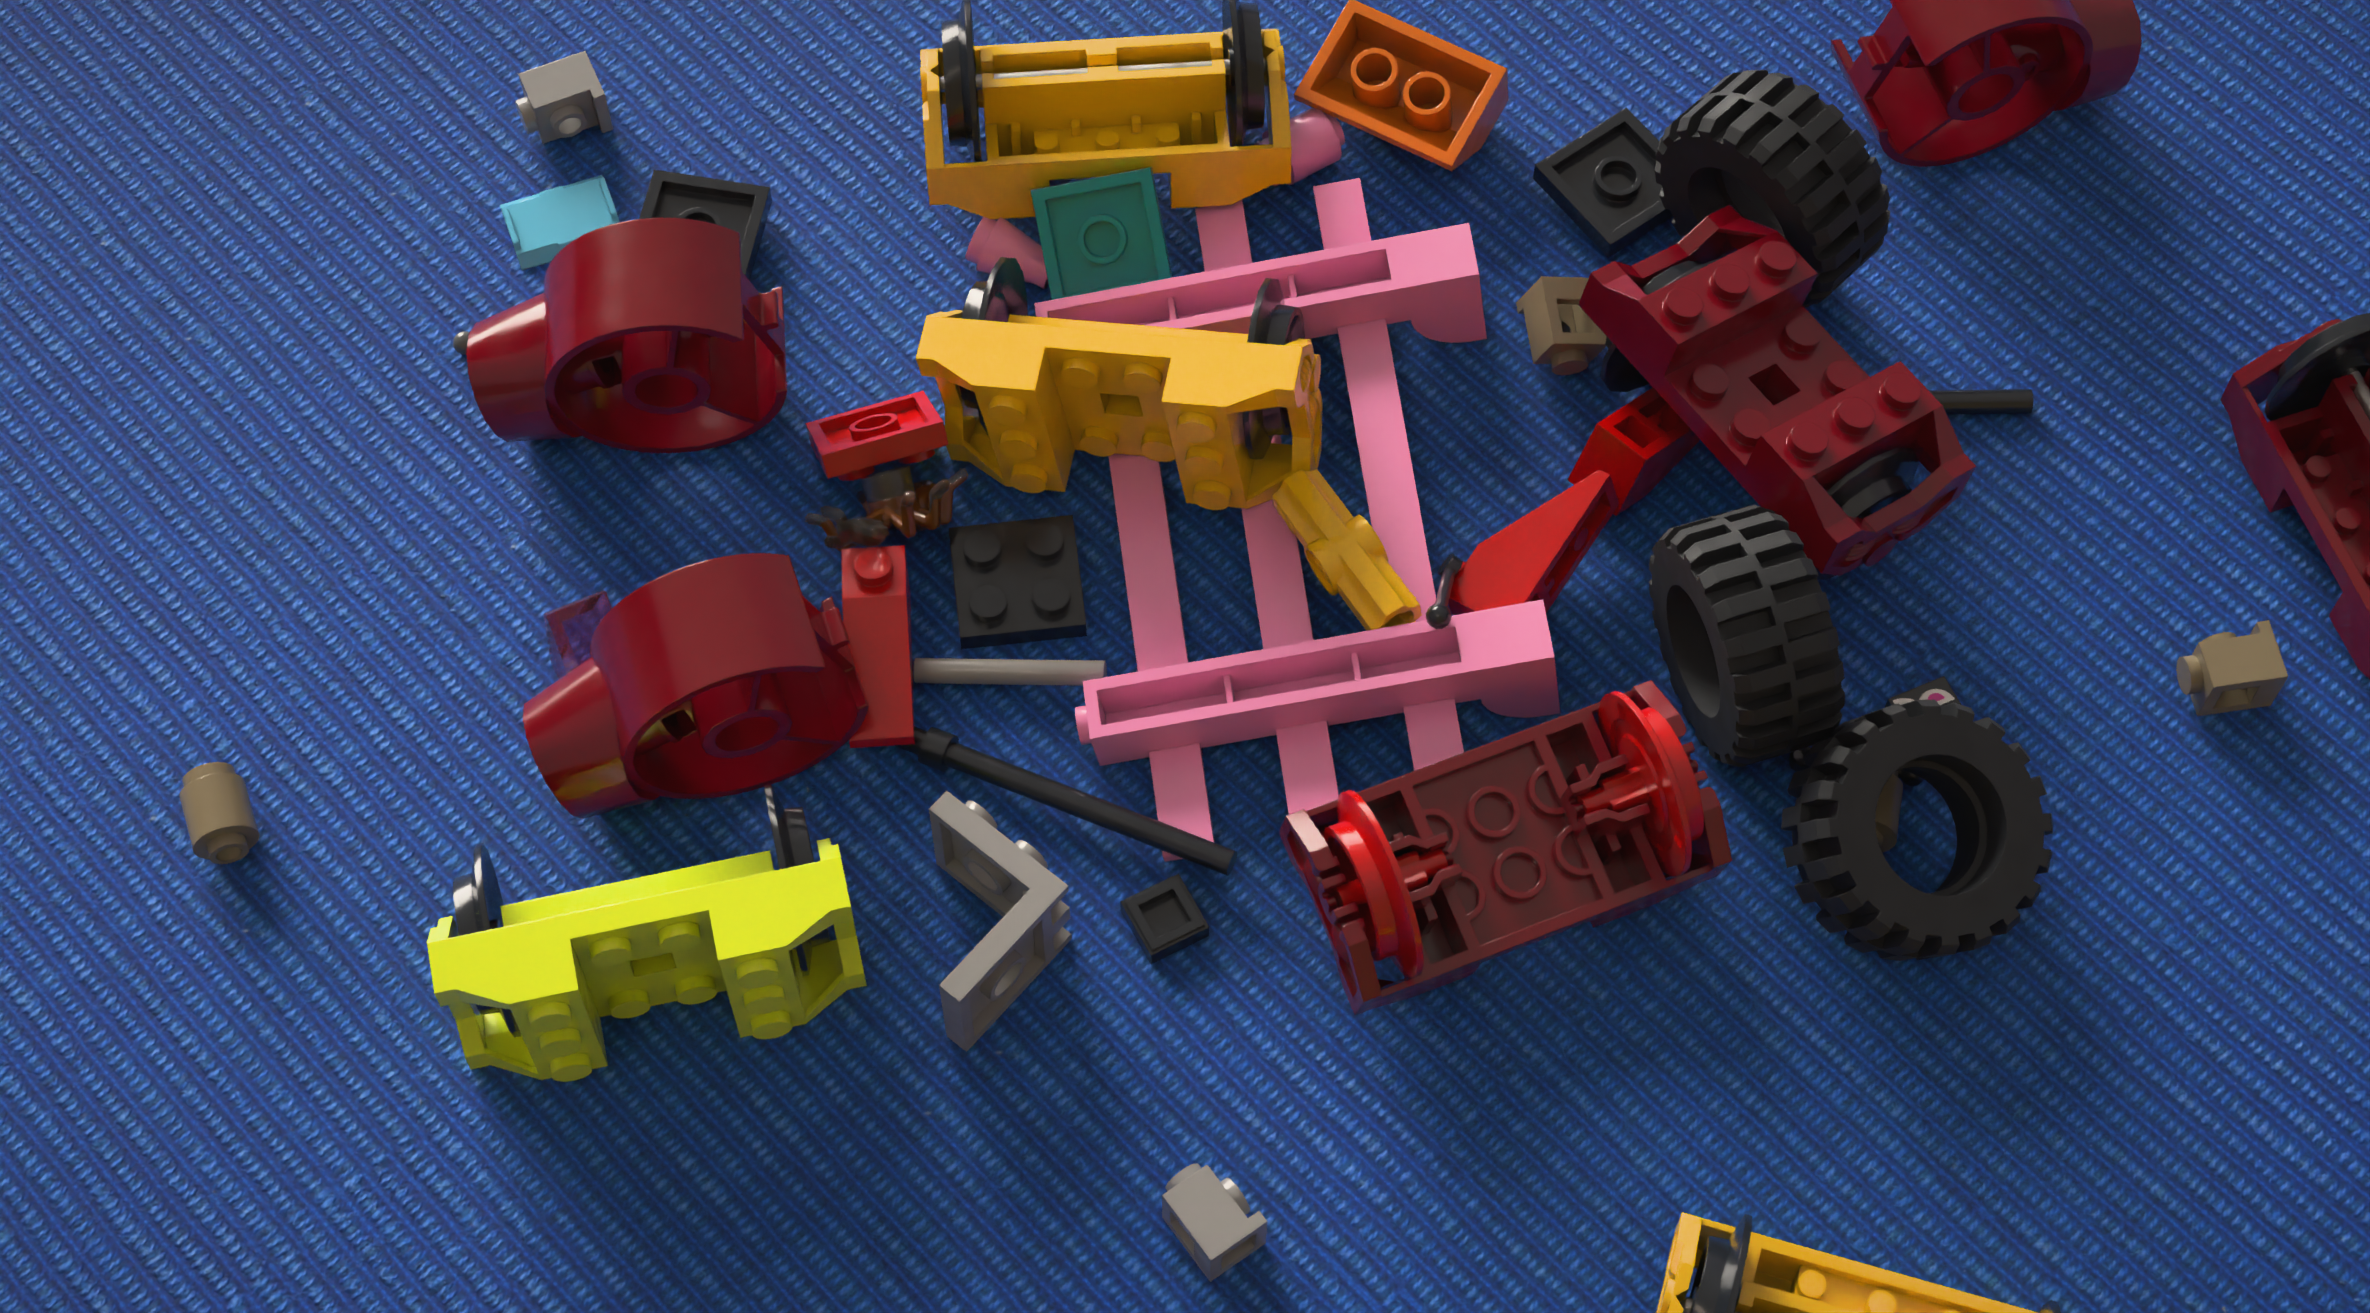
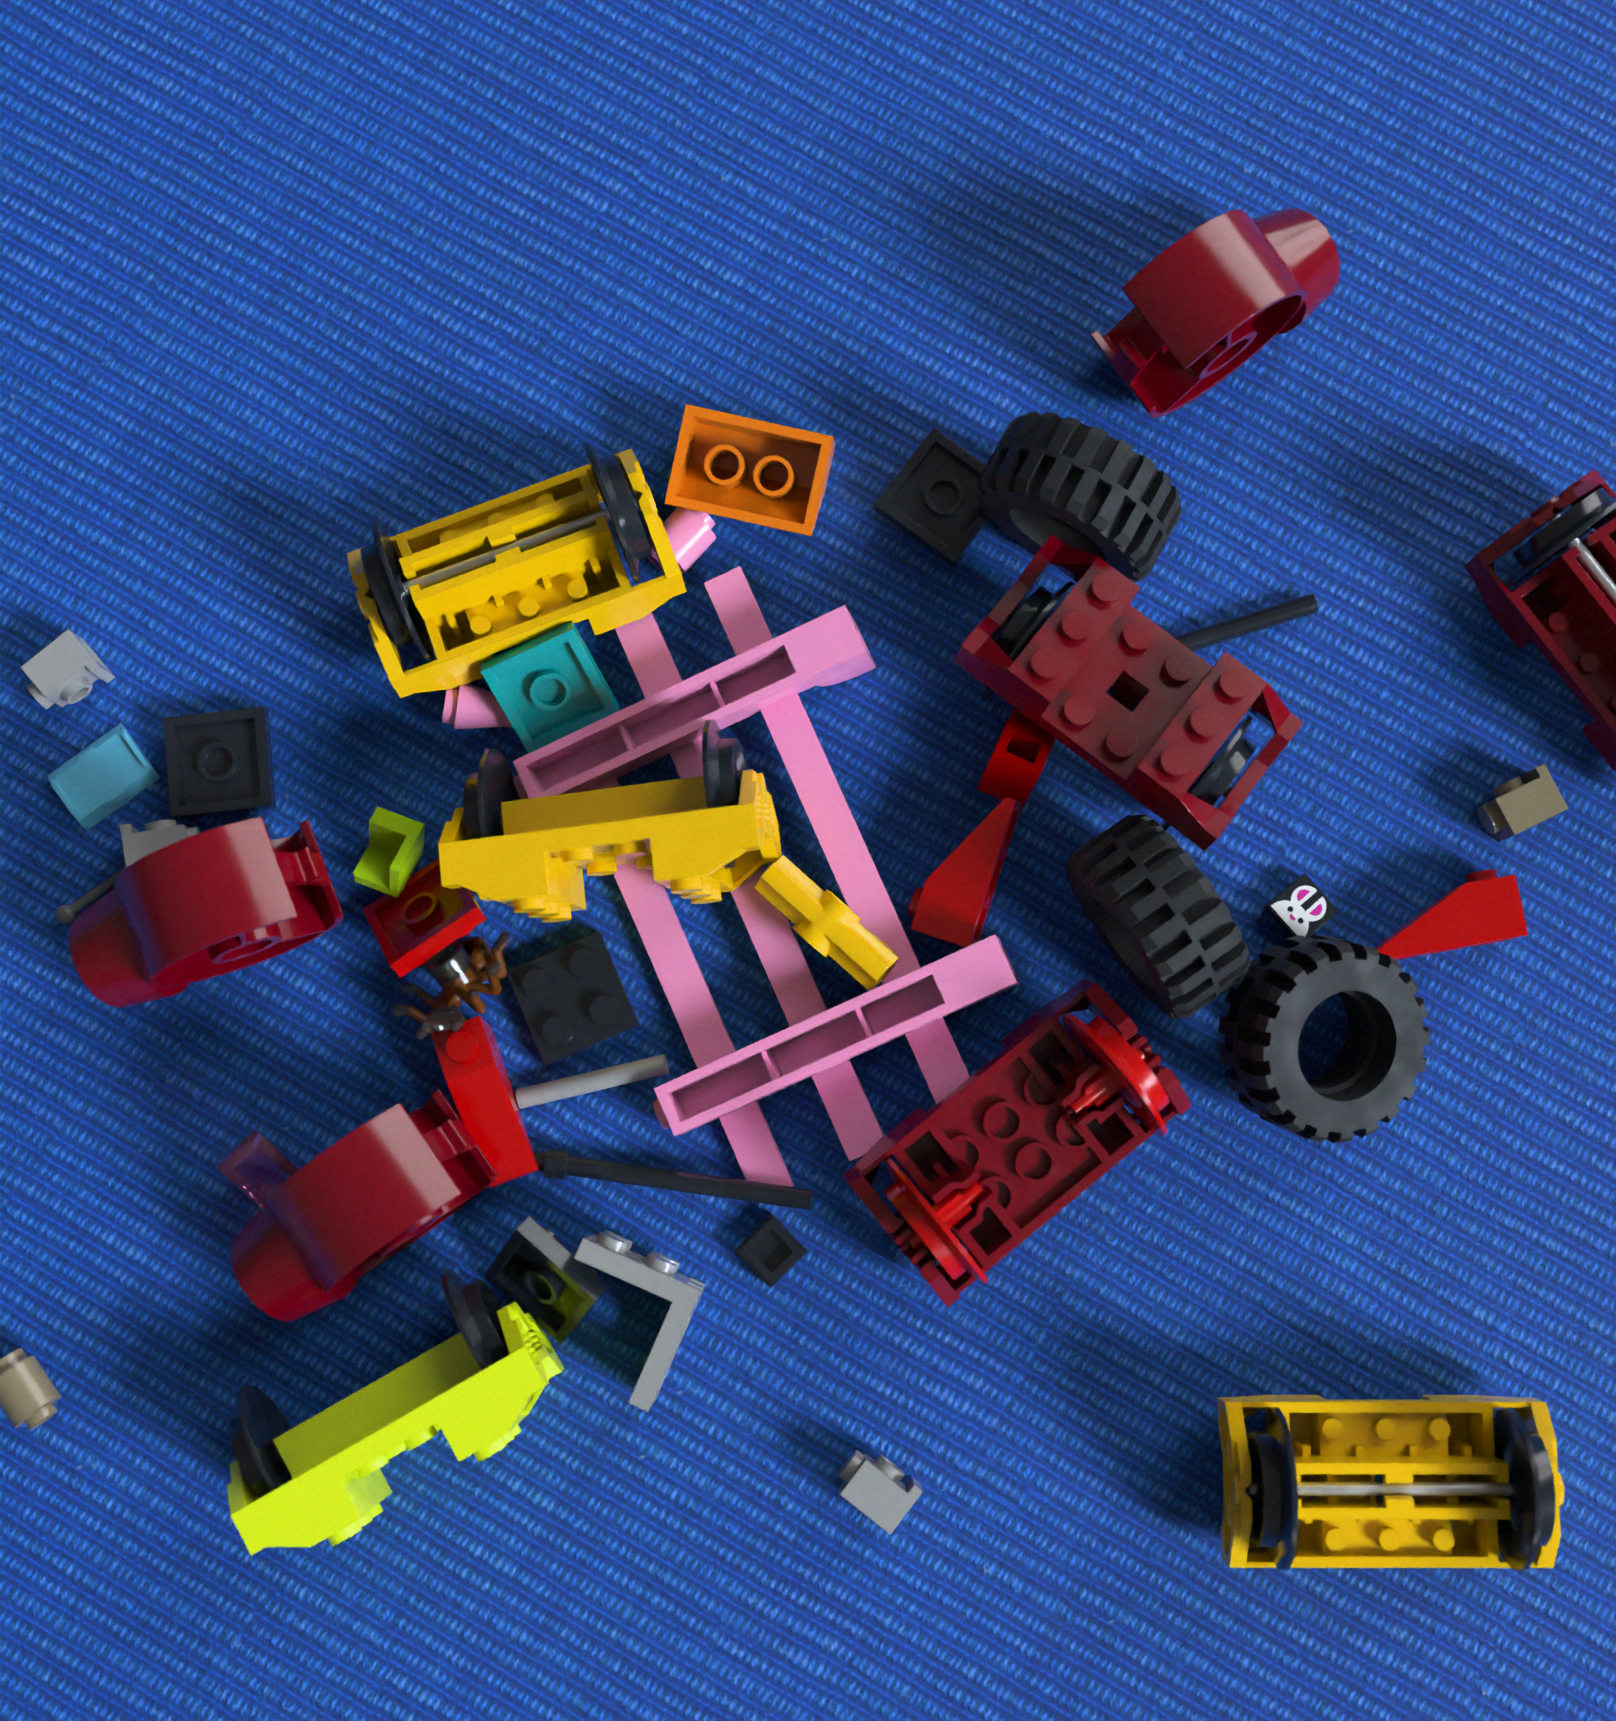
camera: 15 degrees left, 20 degrees up
(865, 367) = (392, 852): none -> lime panel
(886, 854) = (545, 1279): none -> black plate
(1439, 614) = (917, 970): black hinge -> none
(1558, 326) = (933, 645): dark tan brick -> none
(2128, 775) = (1466, 916): none -> red slope

